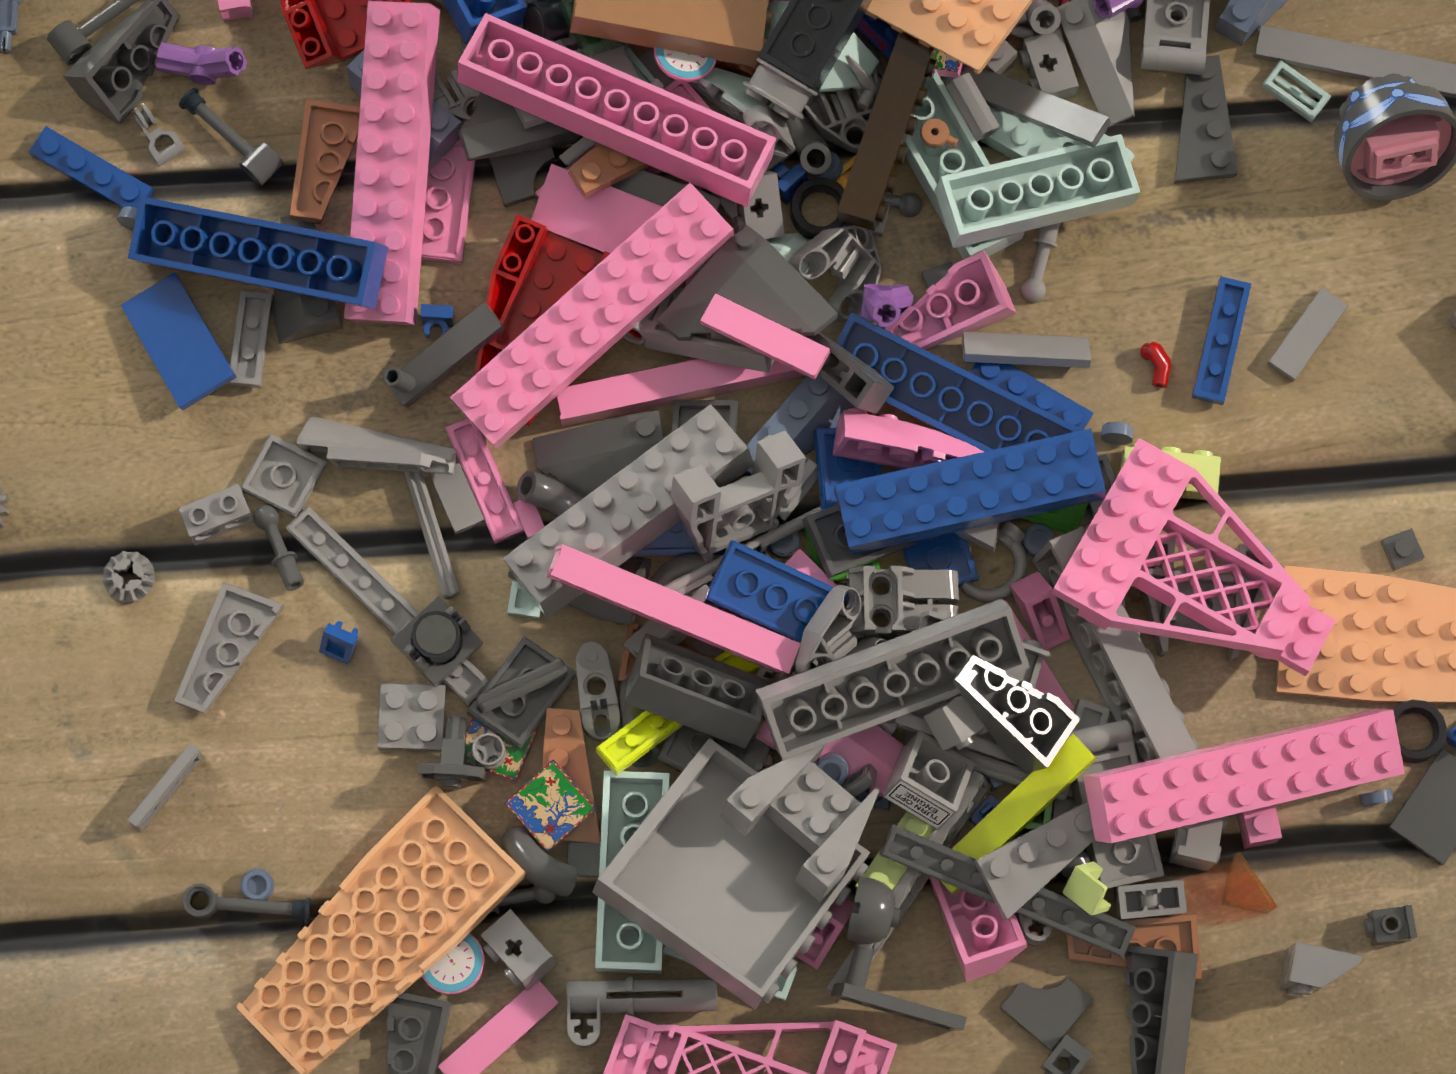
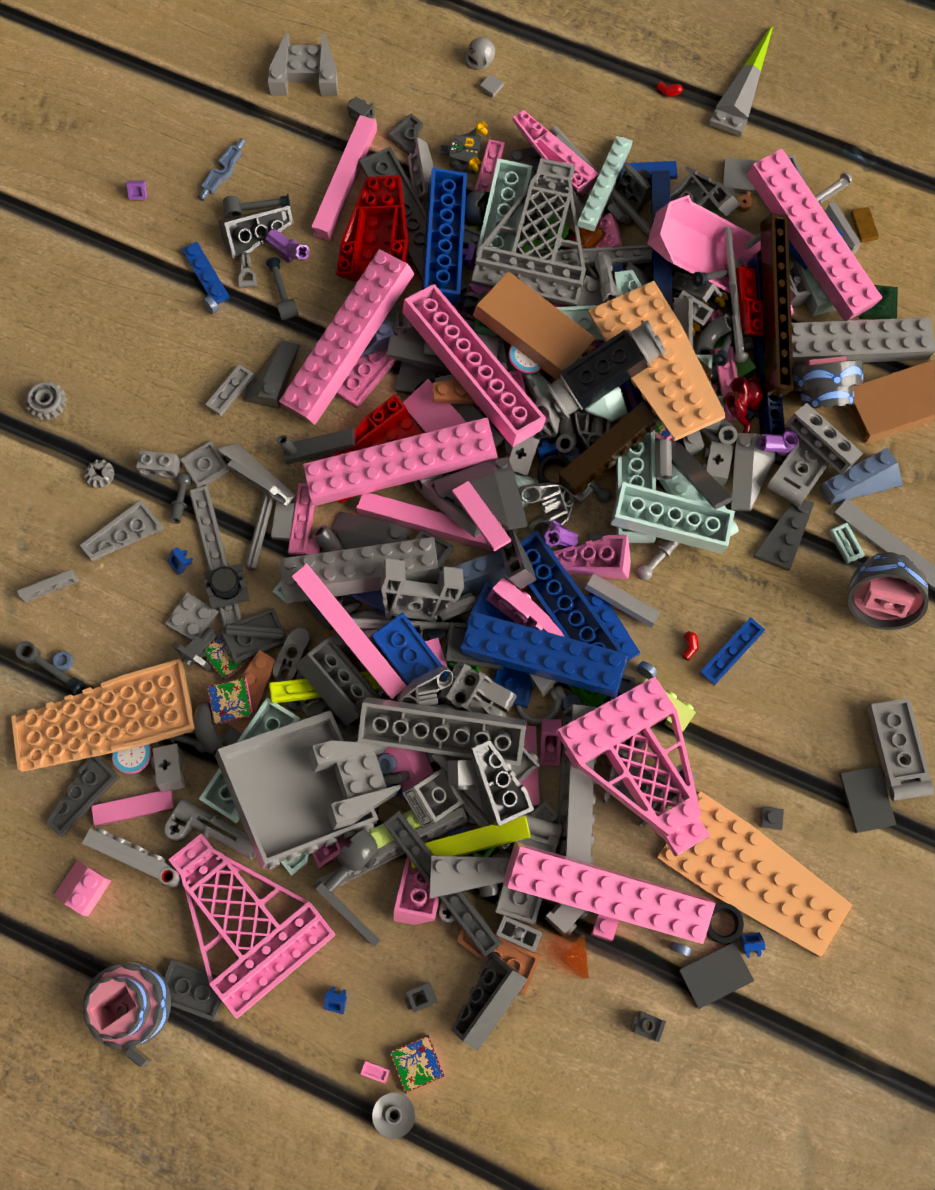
camera: 35 degrees right, 5 degrees down
(178, 341) = (194, 373): blue tile -> none
(258, 252) = (255, 346): blue brick -> none
(324, 148) = (314, 322): nougat wing -> none
(436, 316) = (327, 425): blue tile -> none
(487, 746) = (213, 652): light grey wheel -> none
(867, 83) = (613, 416): light grey bar -> none
(943, 135) = (638, 466): nougat piece -> none
(1046, 1012) = (427, 963): dark grey tile -> none
(1086, 889) = (484, 907): yellowish green panel -> none
(1307, 334) = (782, 673): light grey tile -> none
(1313, 967) = (589, 1026): light grey slope -> none

